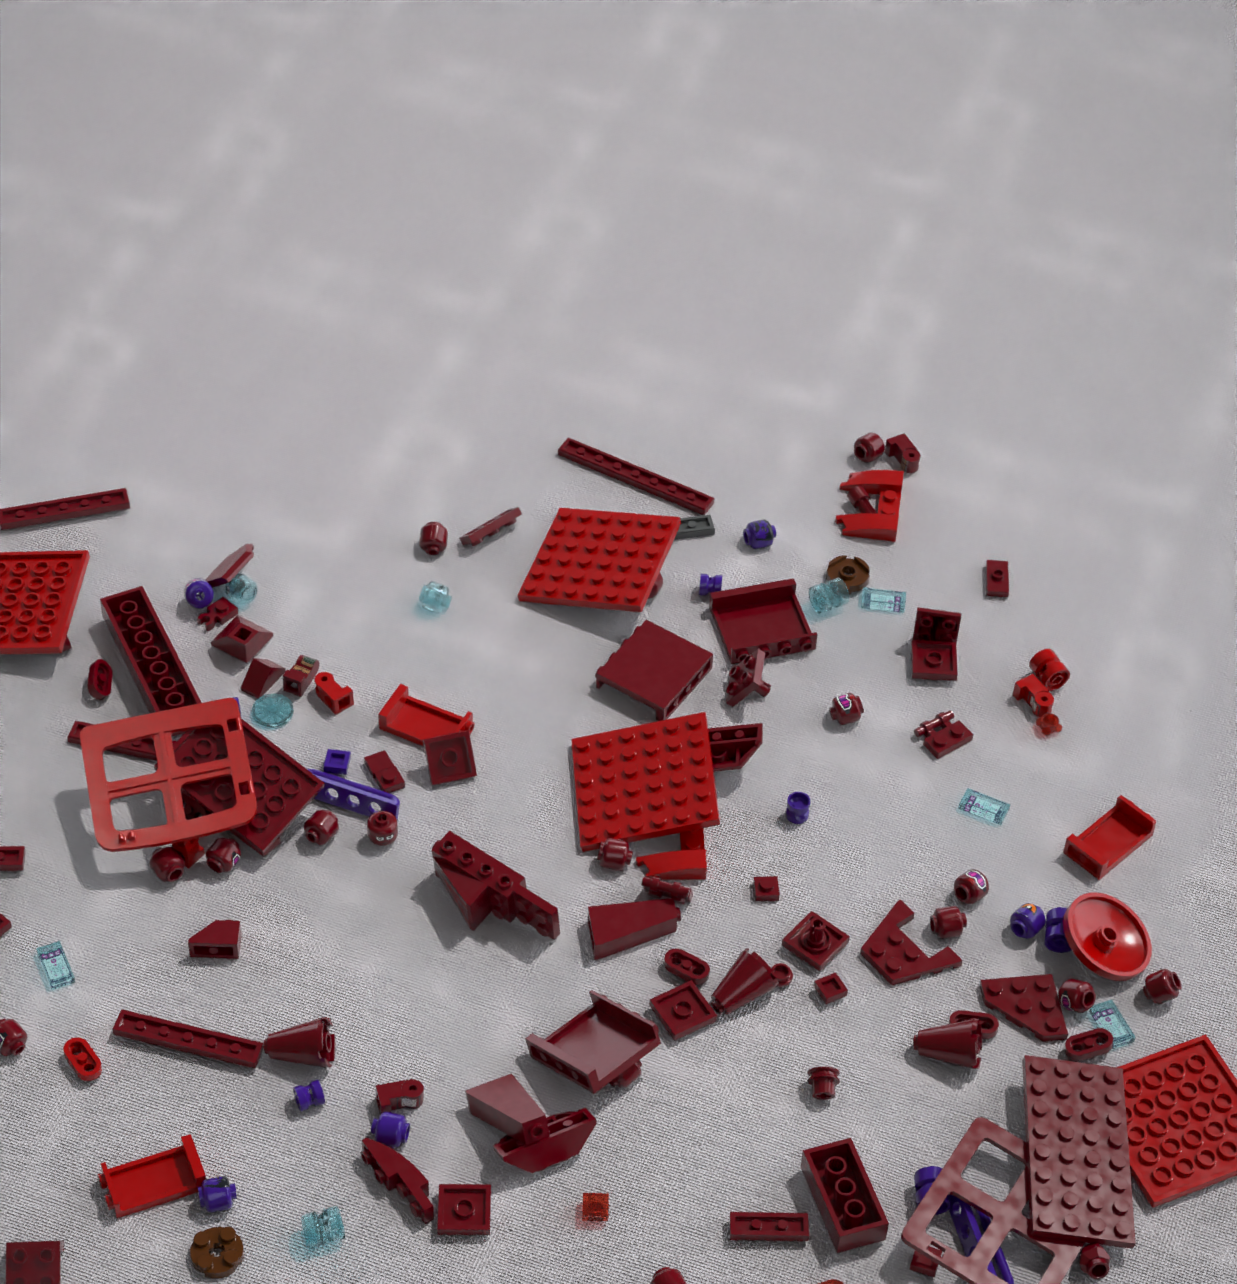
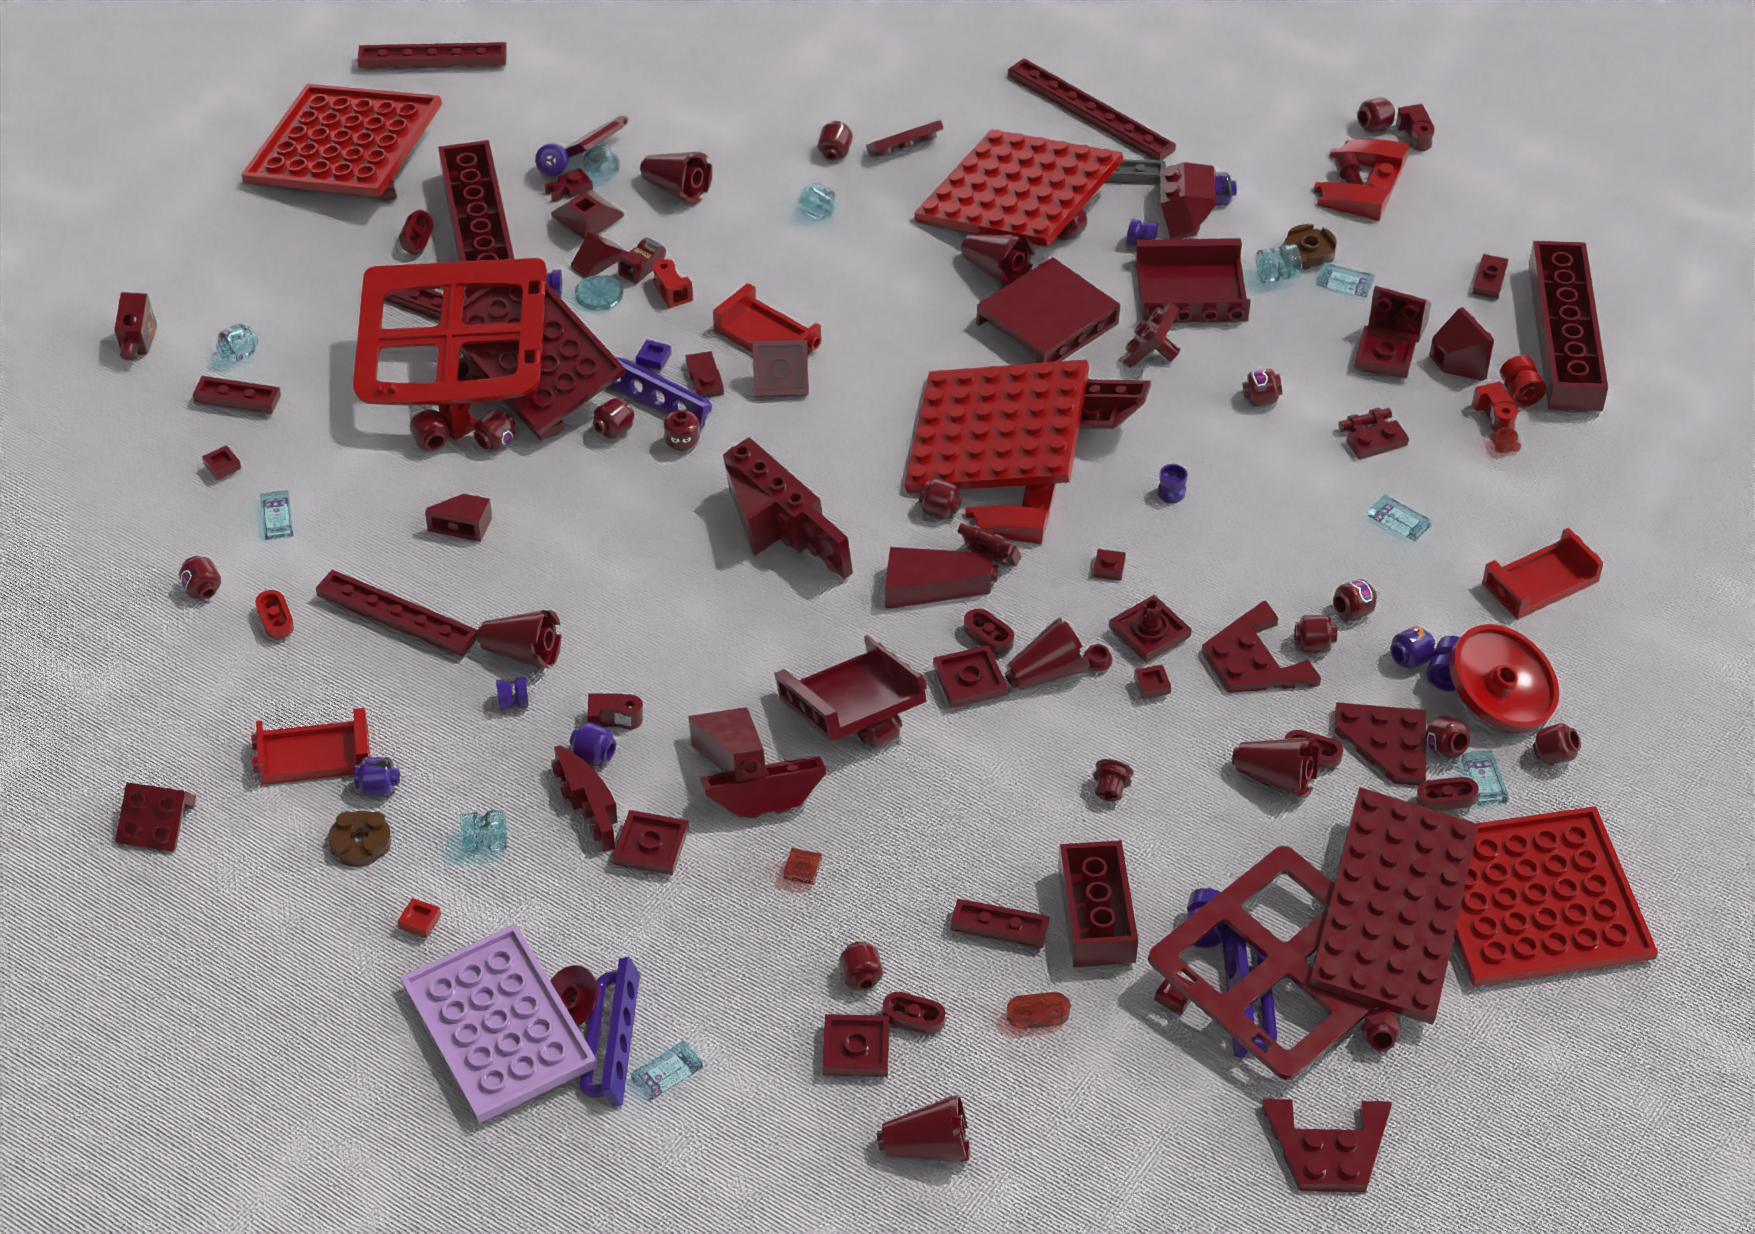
camera: 15 degrees right, 0 degrees up
(310, 590) = (680, 174): none -> dark red cone
(600, 624) = (999, 255): none -> dark red cone
(740, 547) = (1187, 197): none -> dark red wedge
(996, 647) = (1462, 347): none -> dark red slope
(1072, 615) = (1567, 326): none -> dark red brick

